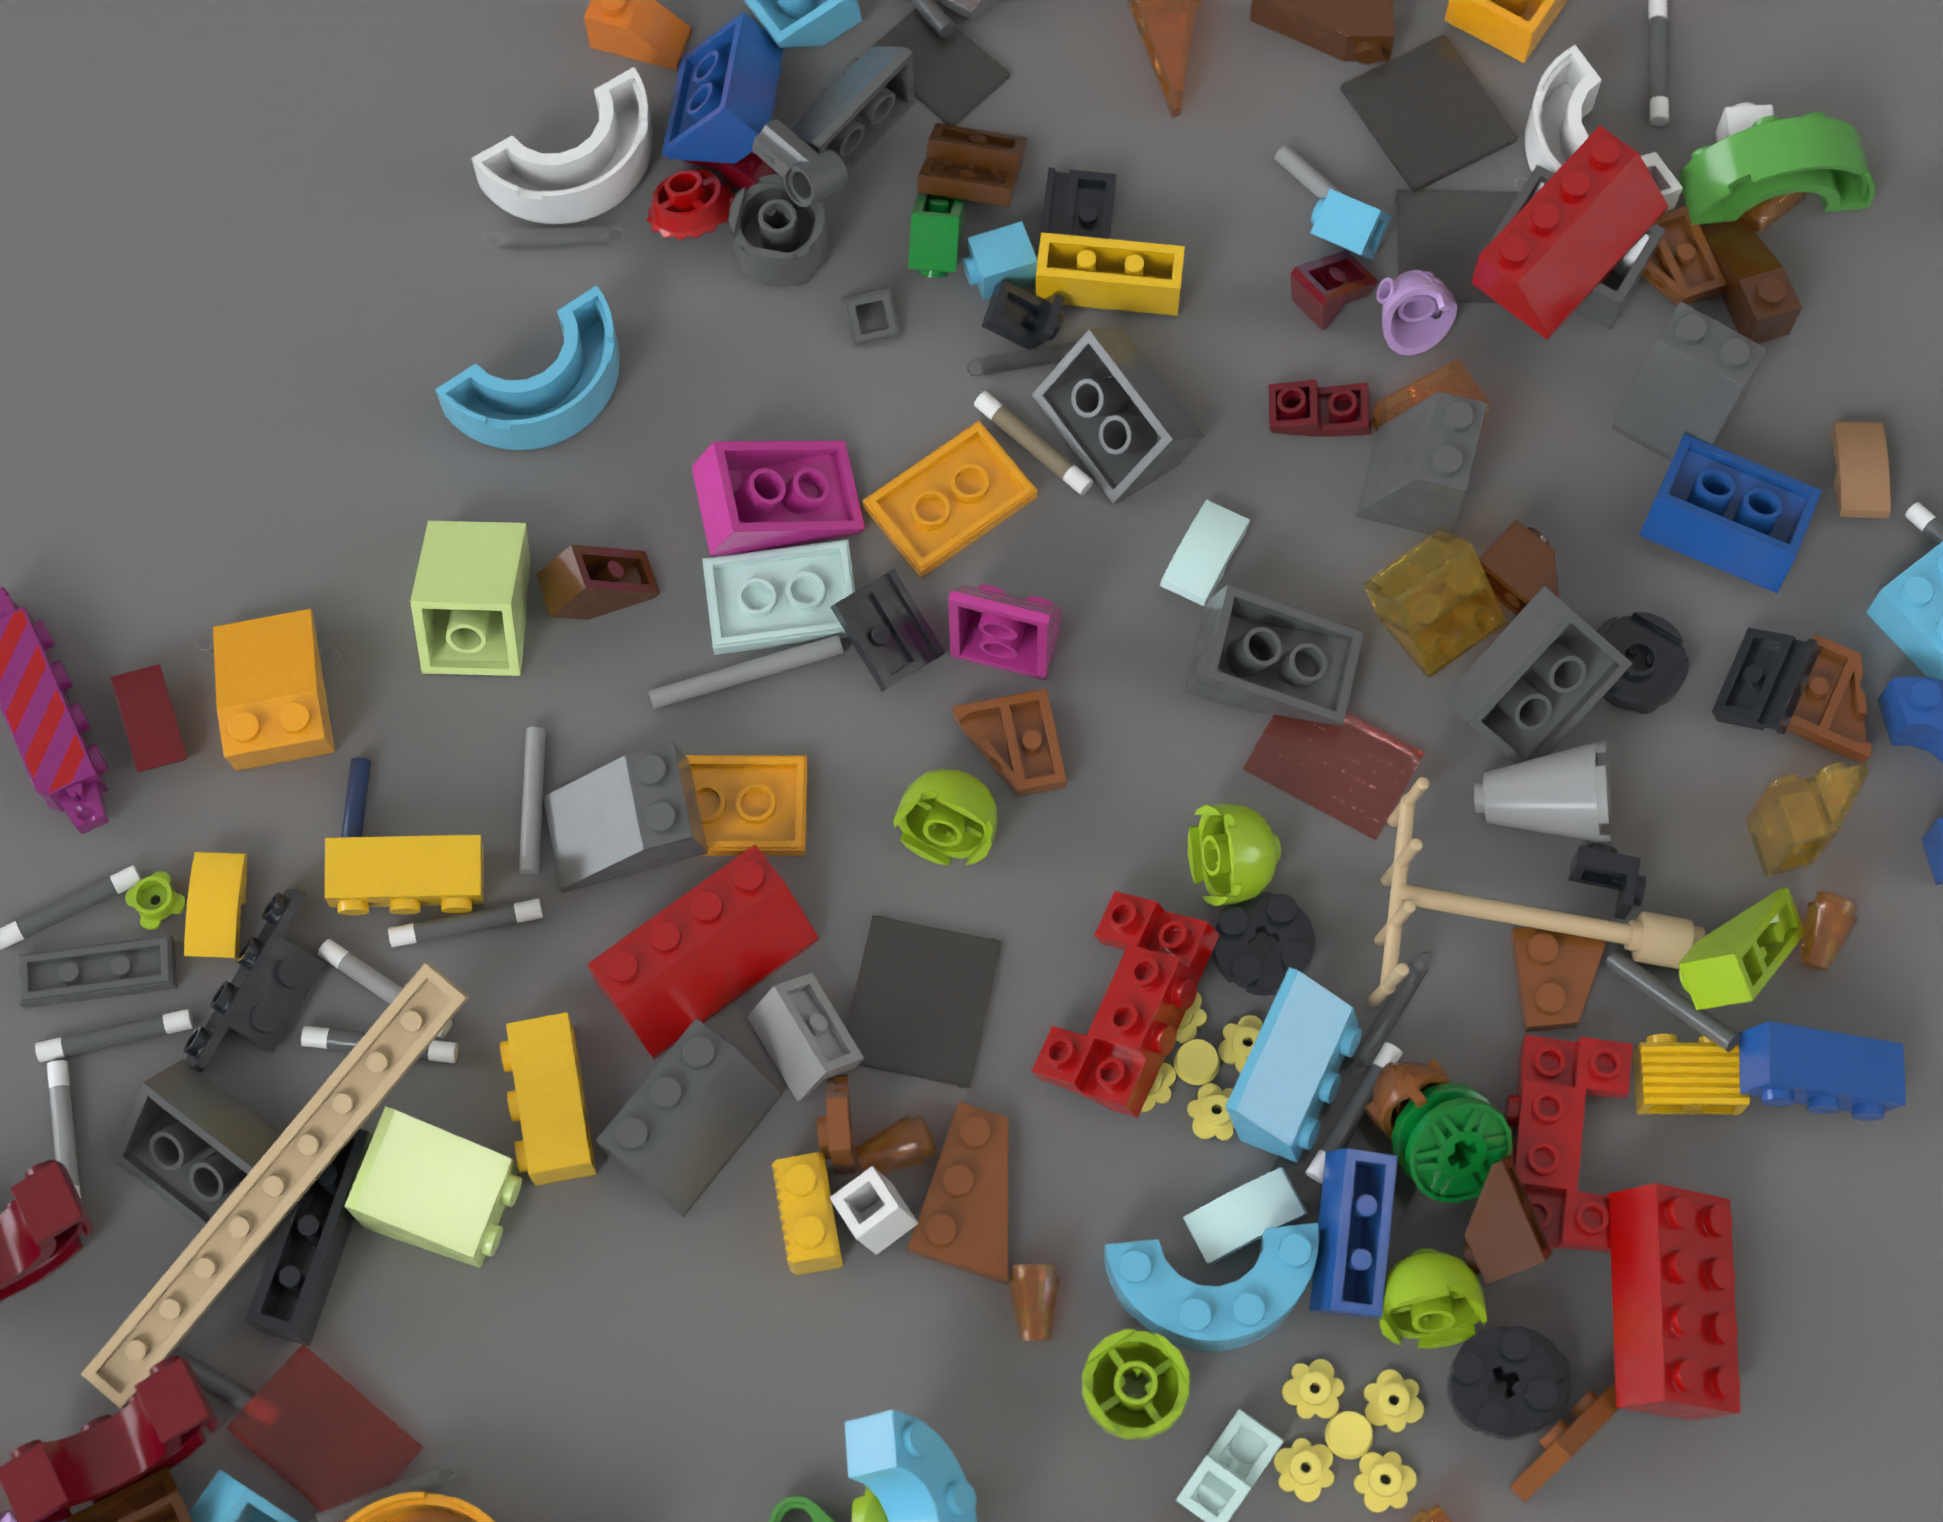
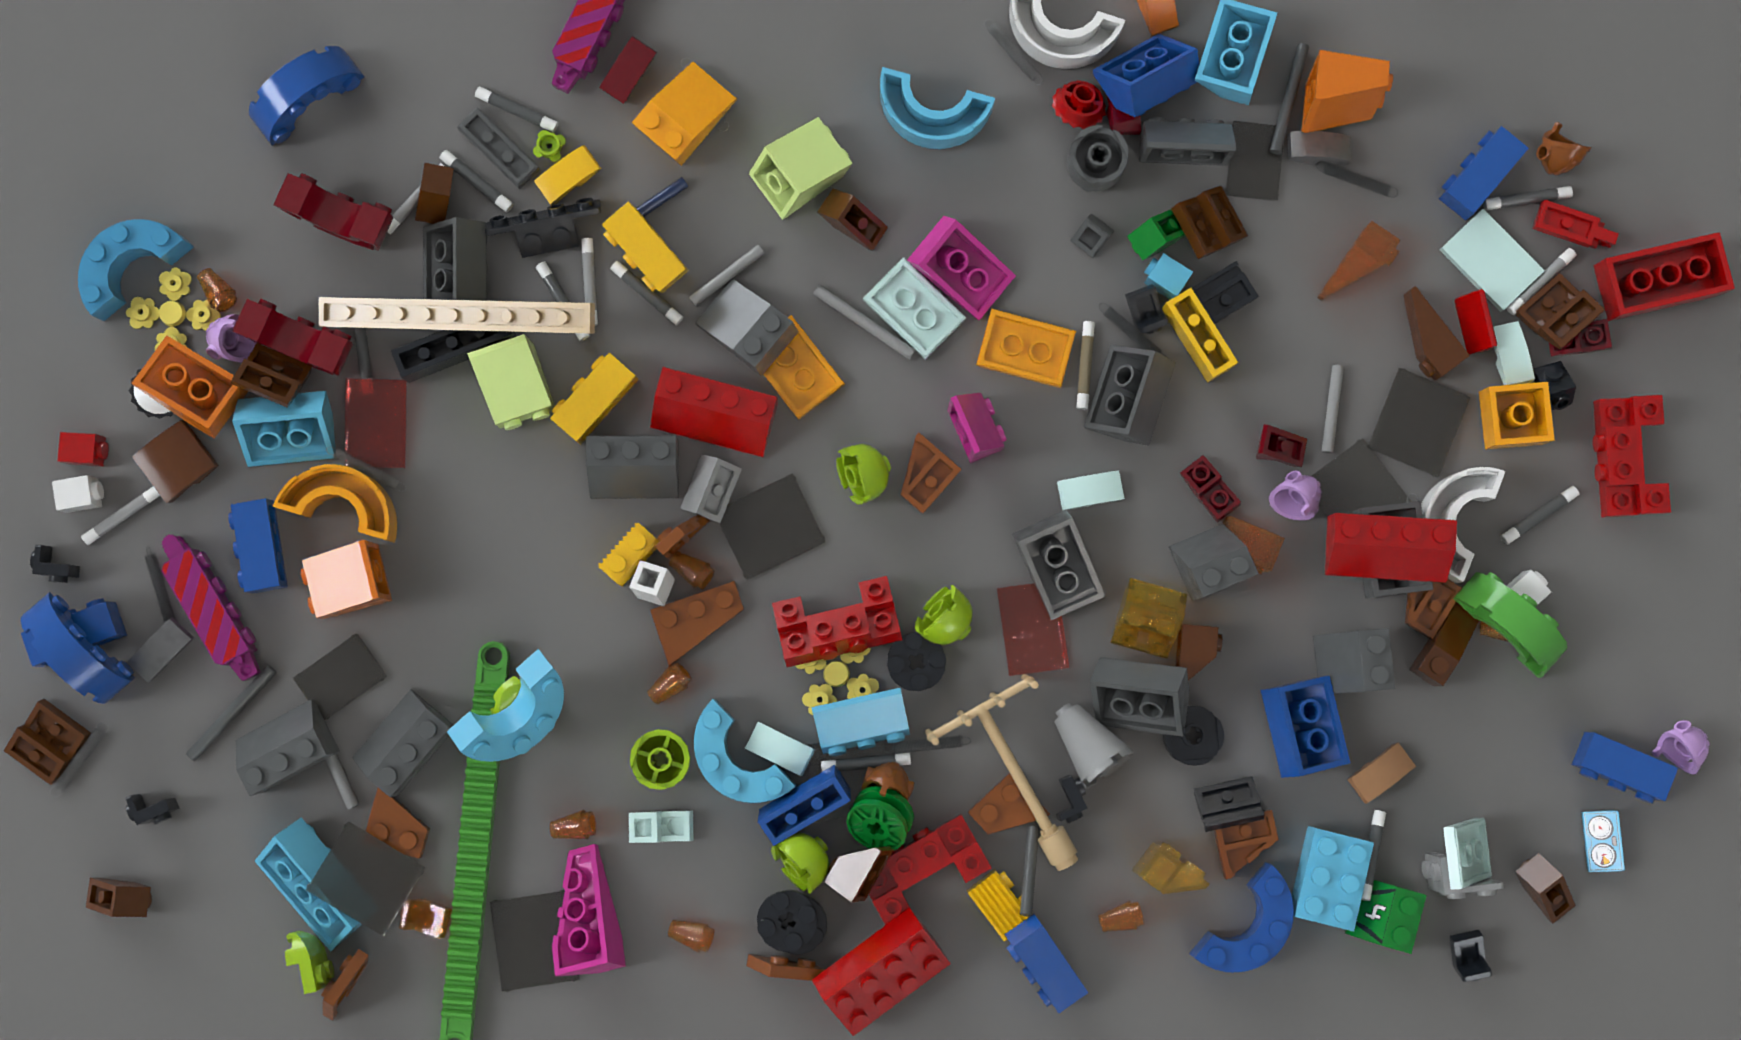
camera: 50 degrees right, 15 degrees up
(82, 1102) = (434, 193): none -> reddish brown slope
(805, 172) = (1130, 150): dark grey piece -> none
(887, 630) = (933, 372): black plate -> none
(1349, 223) = (1319, 431): medium azure brick -> none
(1349, 1435) = (717, 867): light yellow plant -> none
(1742, 953) = (1074, 888): lime slope -> none

